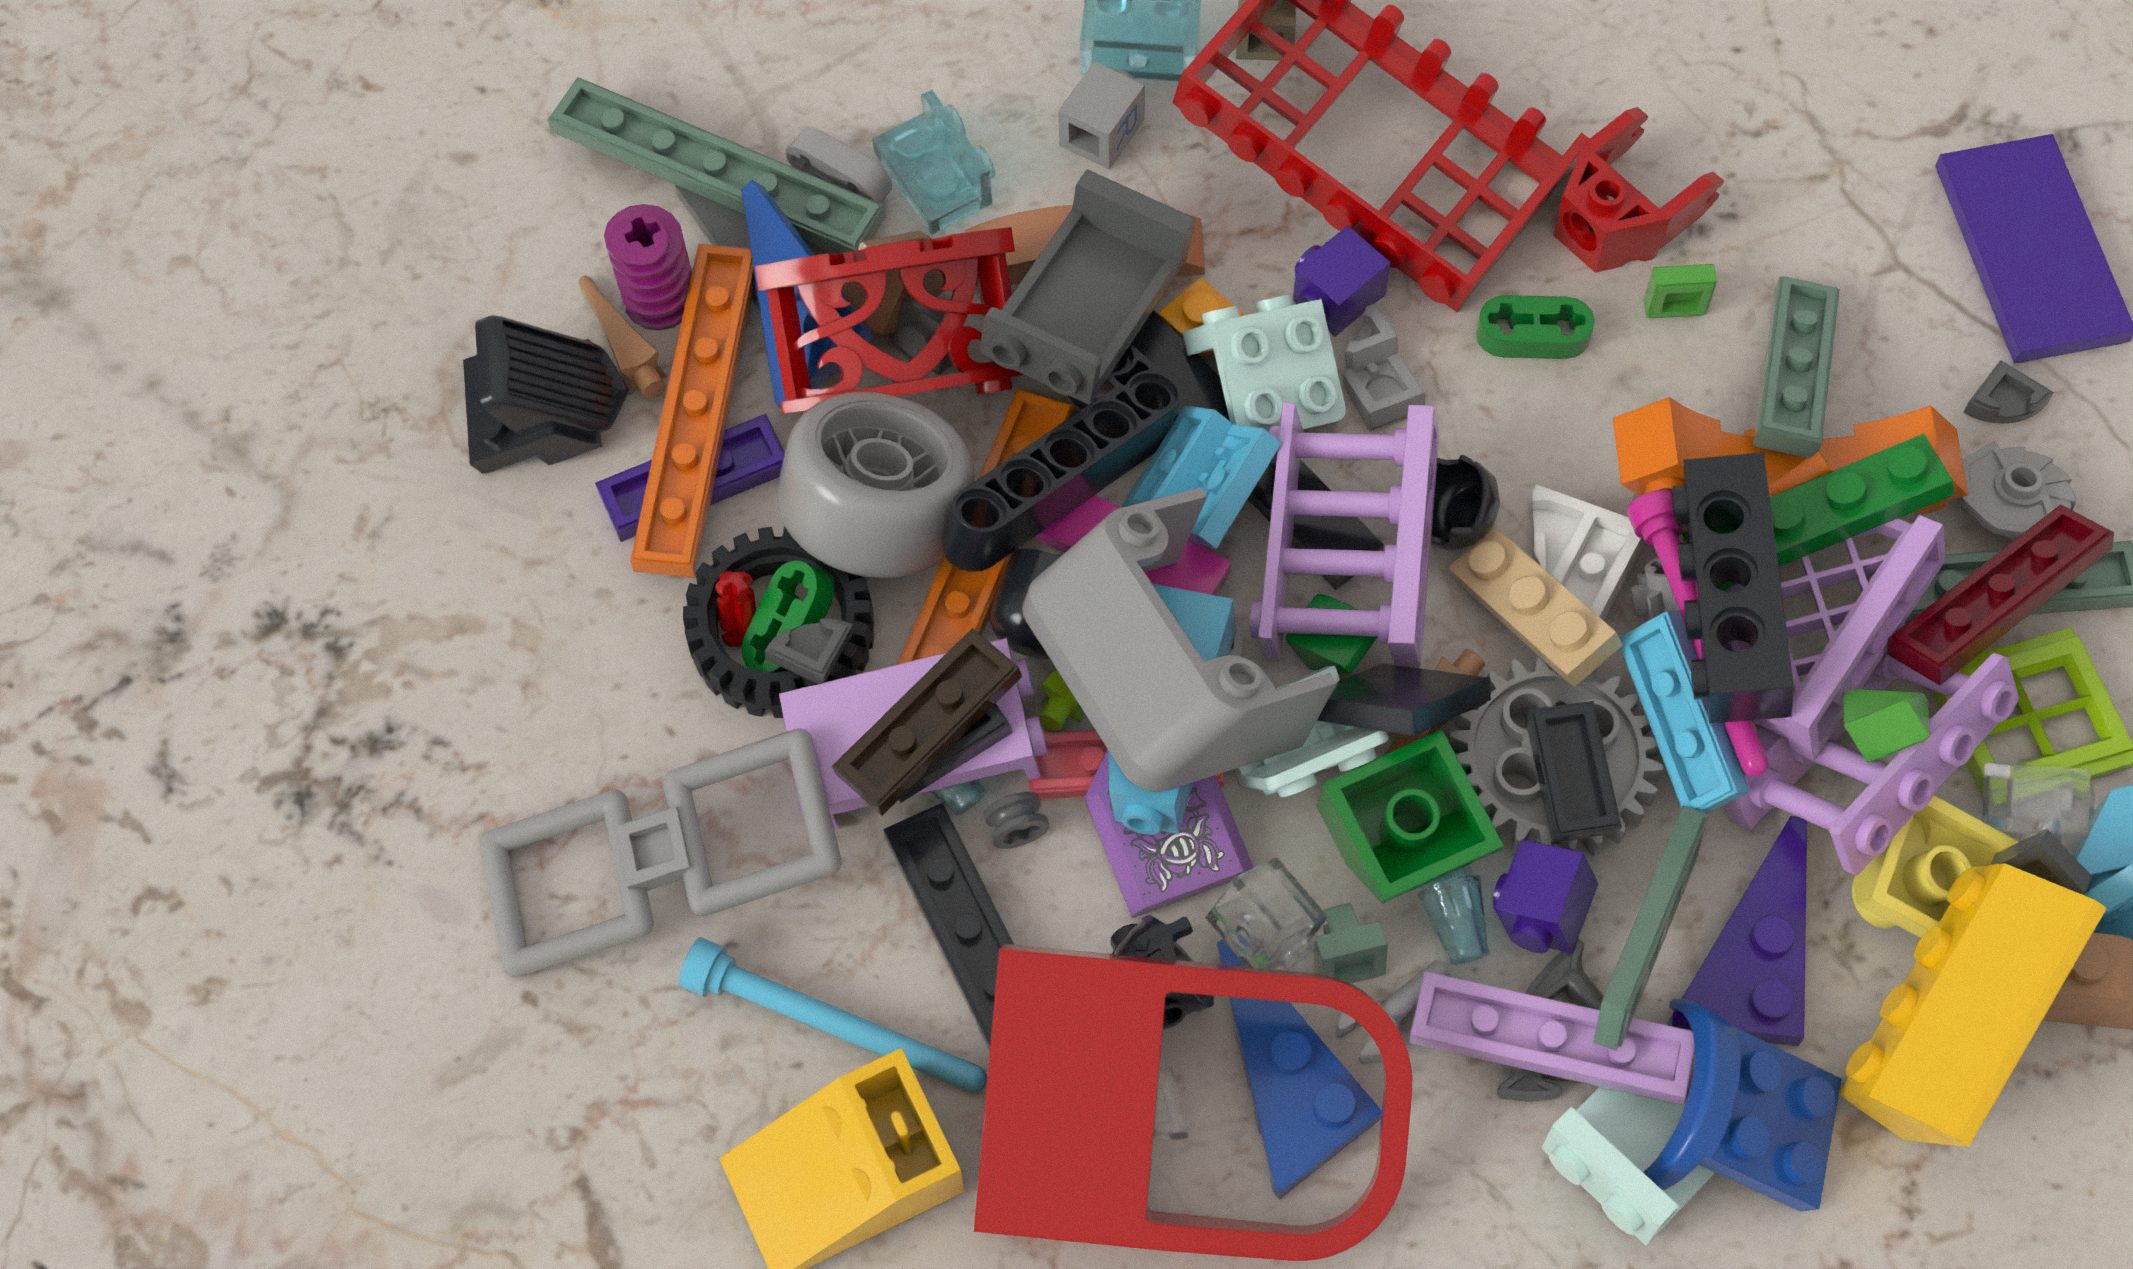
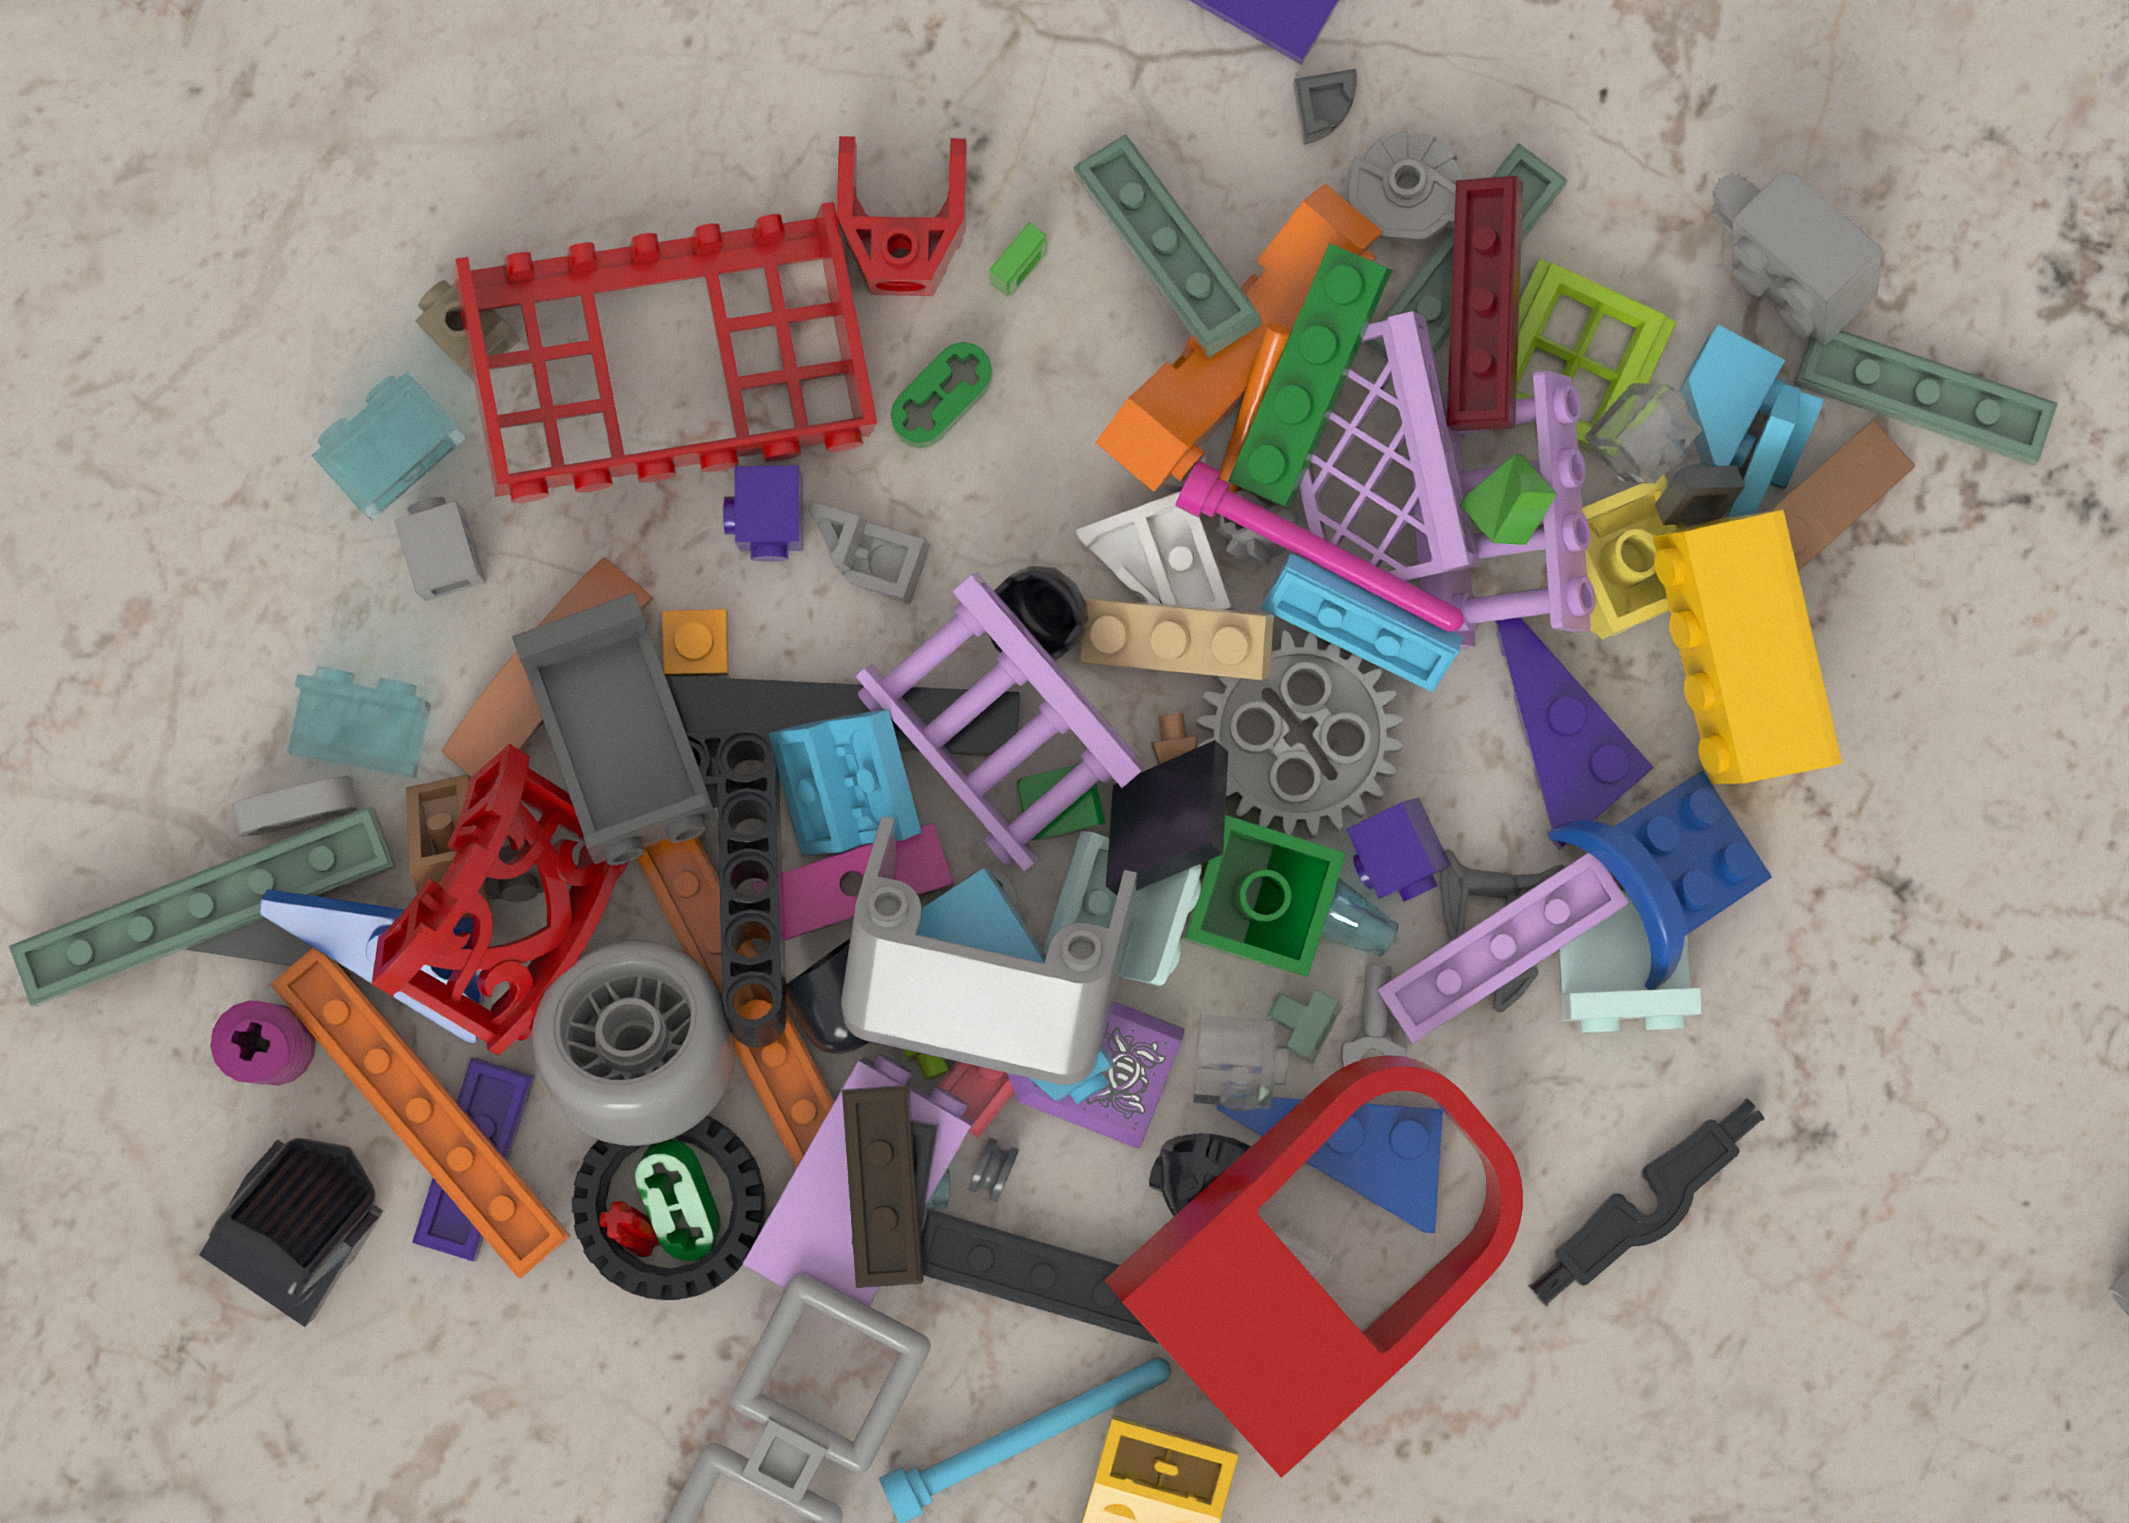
camera: 50 degrees left, 20 degrees up
(631, 351) = (322, 1118): medium nougat piece -> none
(810, 648) = (728, 1209): dark grey tile -> none
(1273, 360) = (796, 637): light aqua bracket -> none
(1573, 771) = (1333, 745): black tile -> none
(1650, 929) = (1493, 804): sand green tile -> none
(1757, 680) = (1256, 430): black brick -> none

